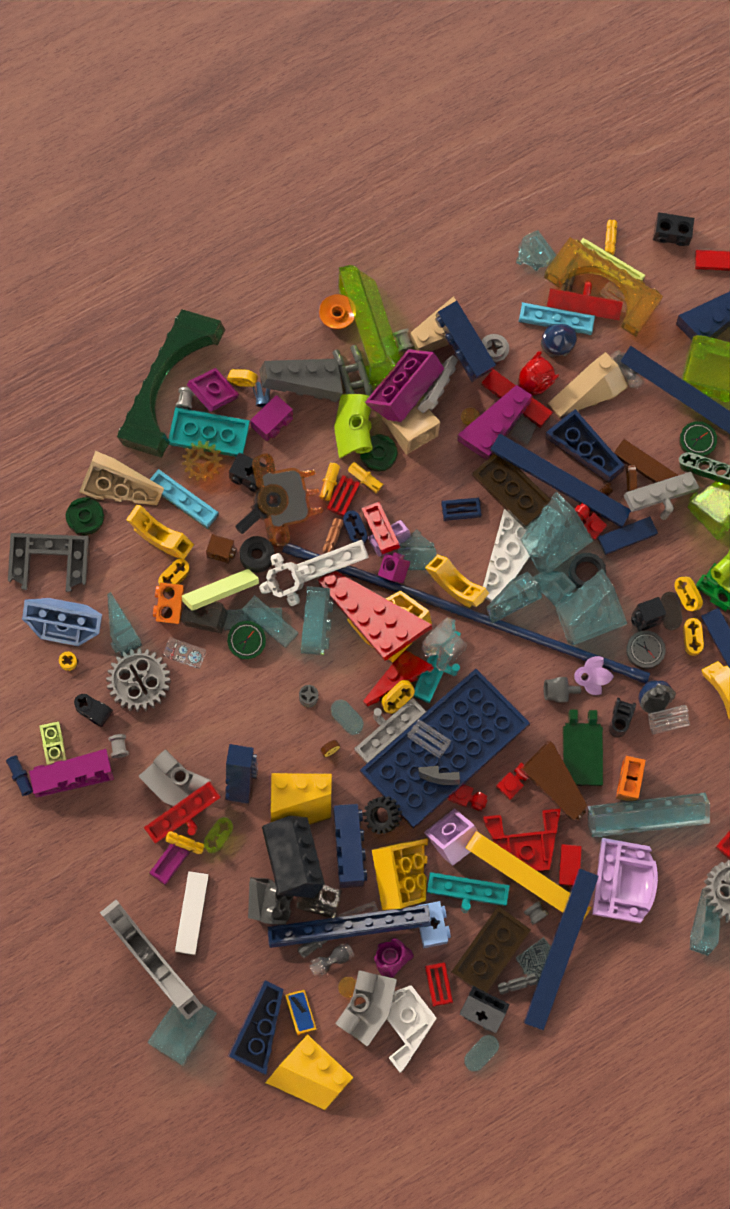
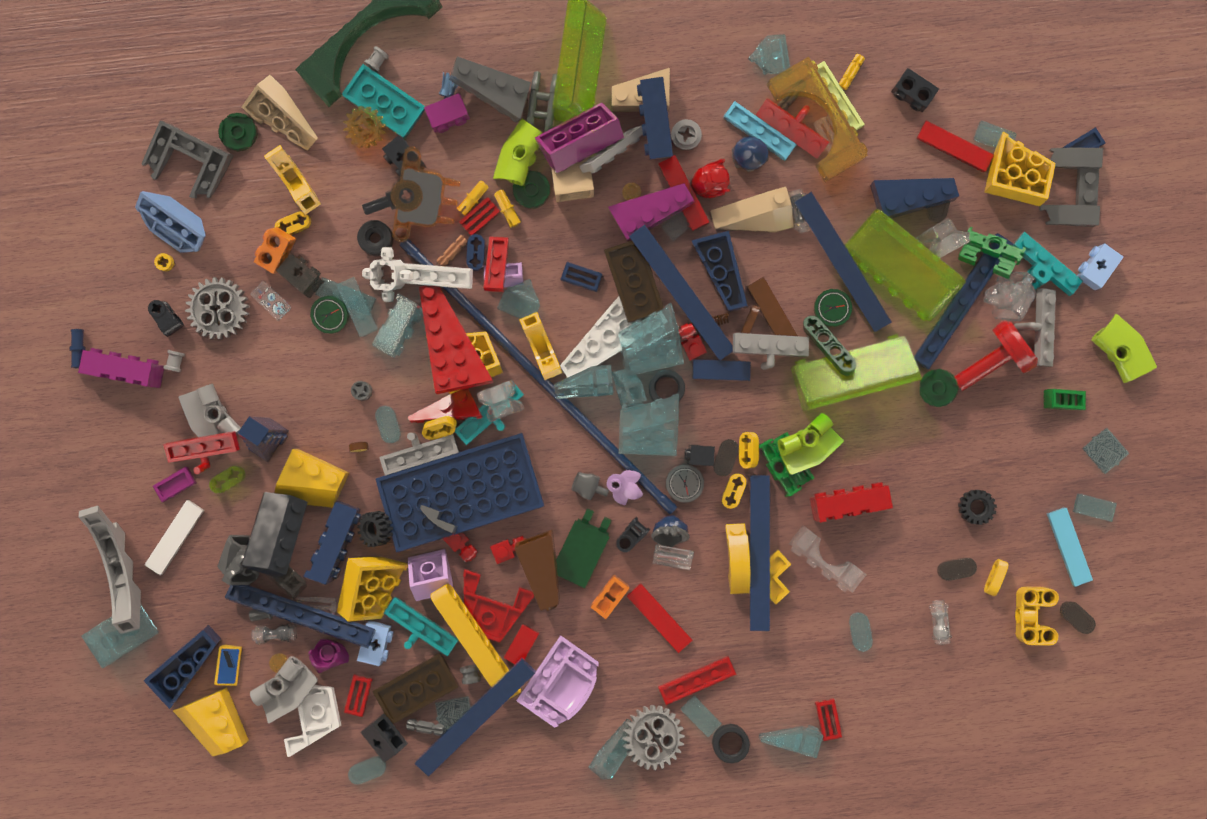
camera: 30 degrees right, 15 degrees up
(53, 742) = (120, 332): yellowish green slope -> none
(121, 631) = (221, 254): clear light blue slope -> none
(184, 842) = (183, 466): yellow axle -> none
(185, 500) = (333, 155): medium azure tile -> none
(213, 389) = (405, 61): magenta tile -> none
(220, 589) = (323, 258): yellowish green tile -> none
(221, 549) = (344, 218): reddish brown brick -> none
(242, 378) = (436, 62): yellow beam -> none
(332, 305) = (547, 28): orange dish -> none
(394, 567) = (491, 307): magenta brick -> none
(403, 340) = (604, 89): light grey bush -> none
(415, 728) = (440, 465): clear tile -> none
(648, 814) = (610, 635): clear light blue brick -> none
(683, 780) = (659, 618): none -> red tile

